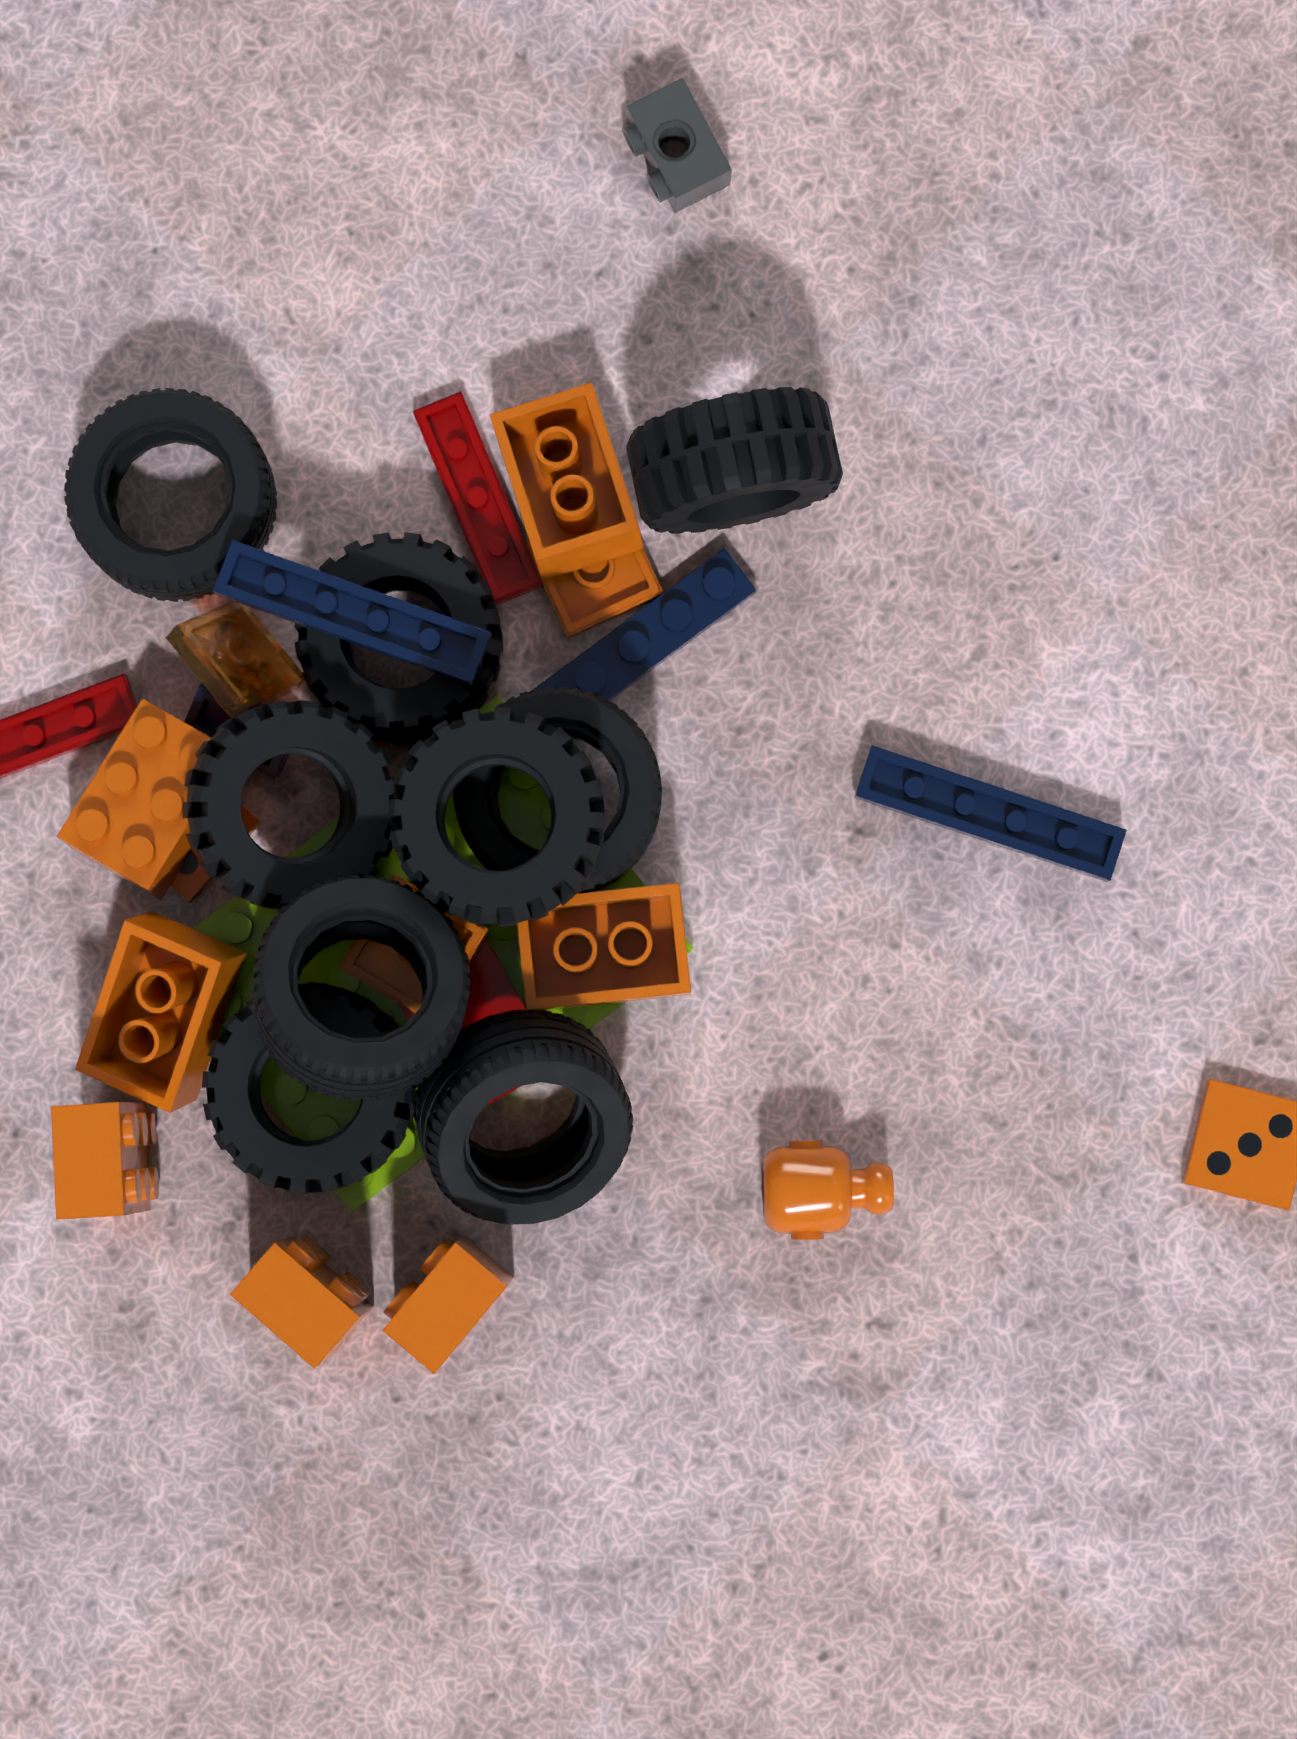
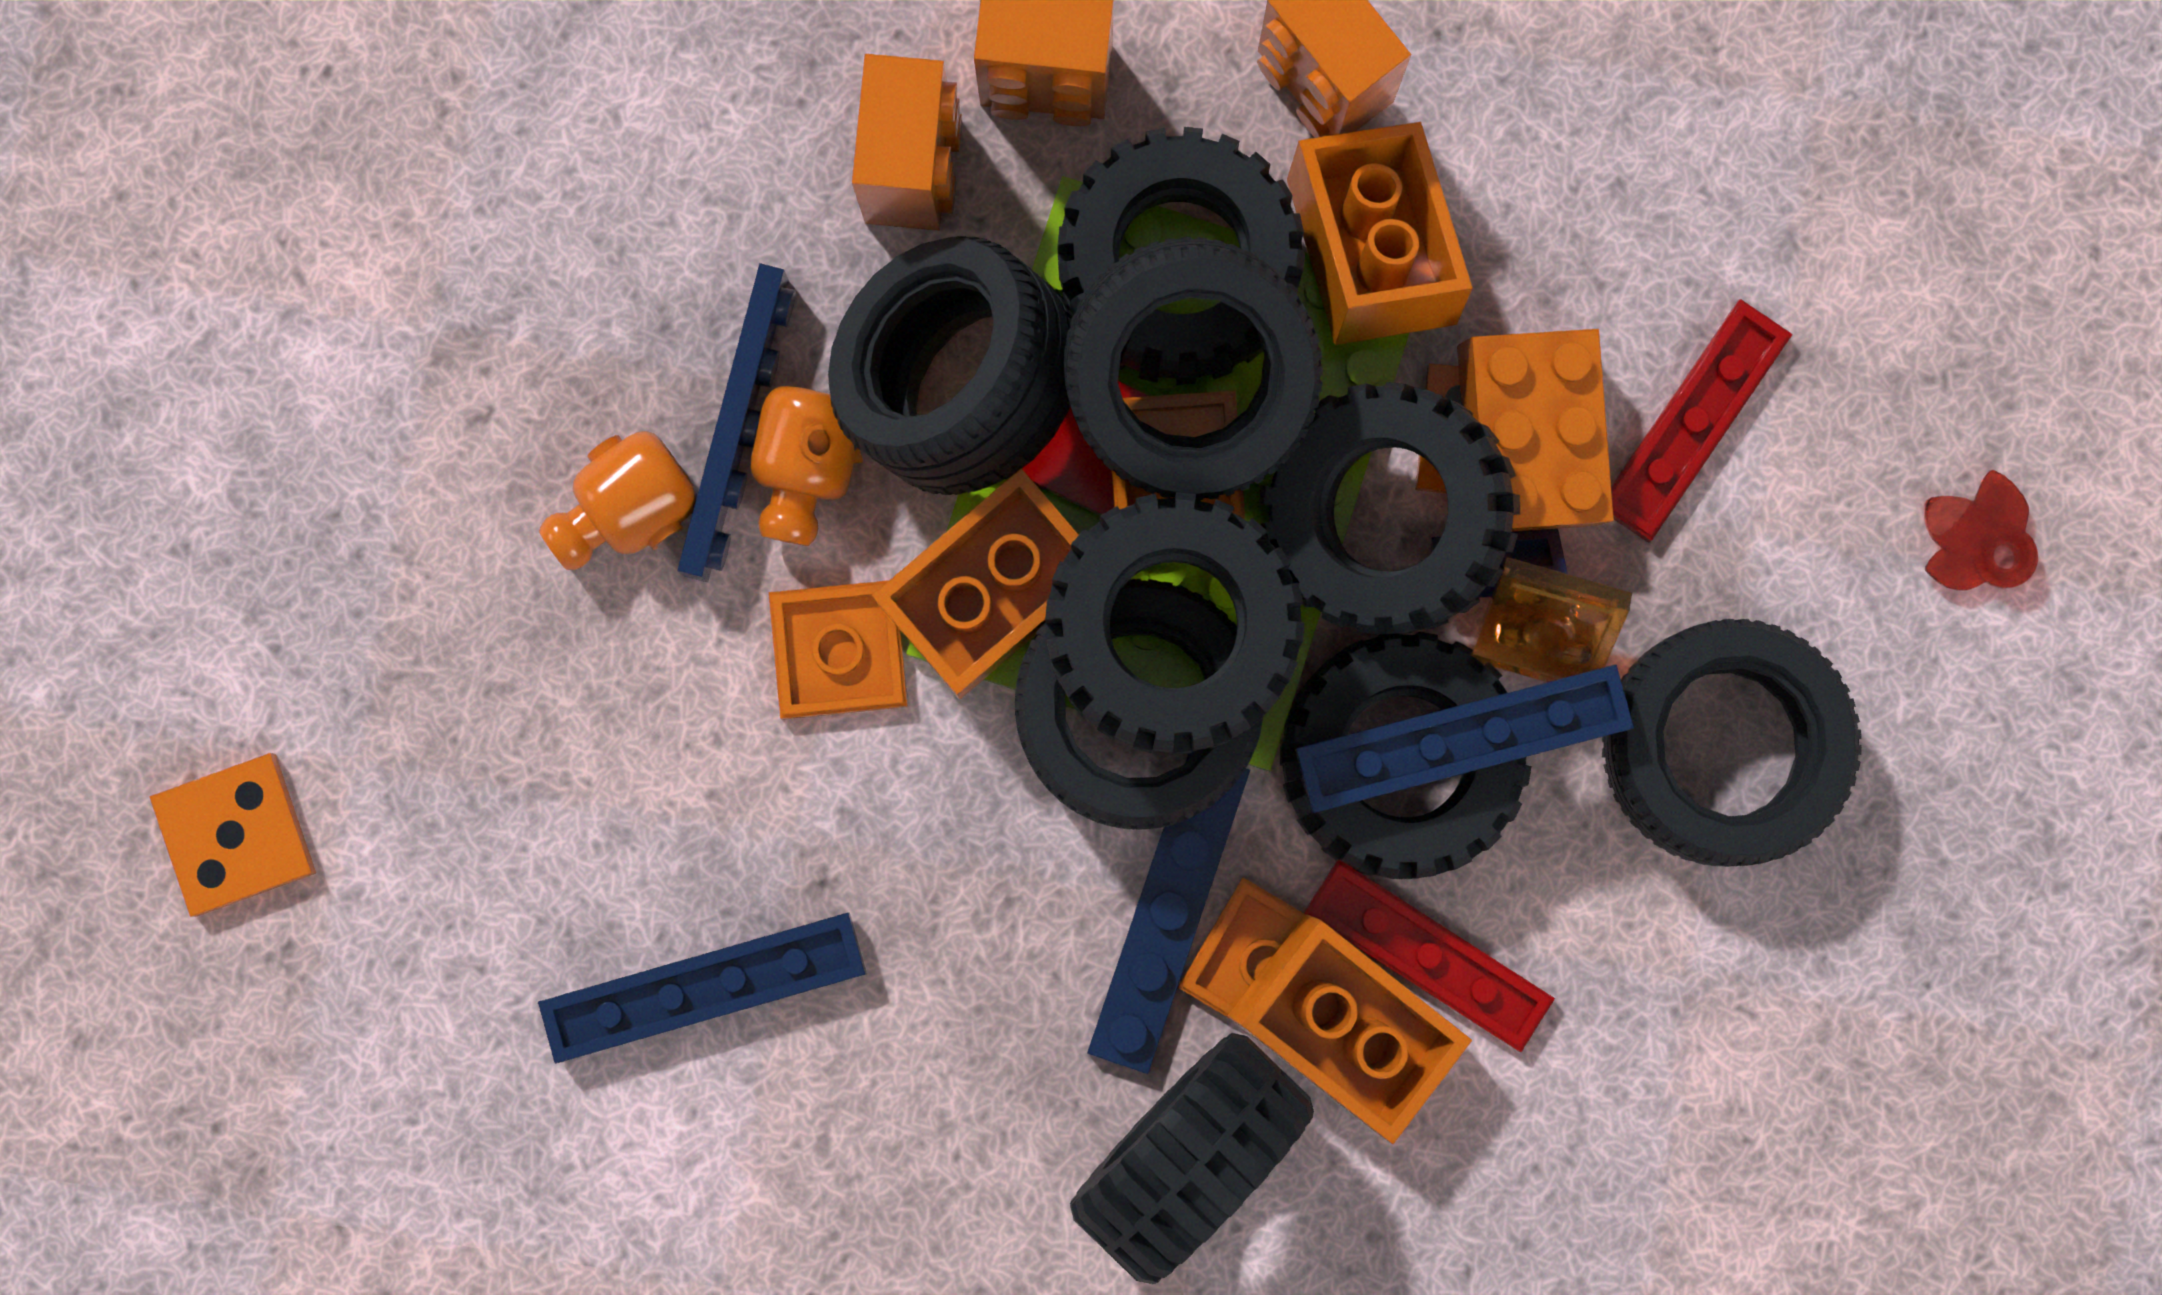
camera: 150 degrees right, 0 degrees up
(674, 1133) = (802, 459): none -> orange piece
(701, 1190) = (737, 424): none -> dark blue plate
(740, 985) = (835, 652): none -> orange tile

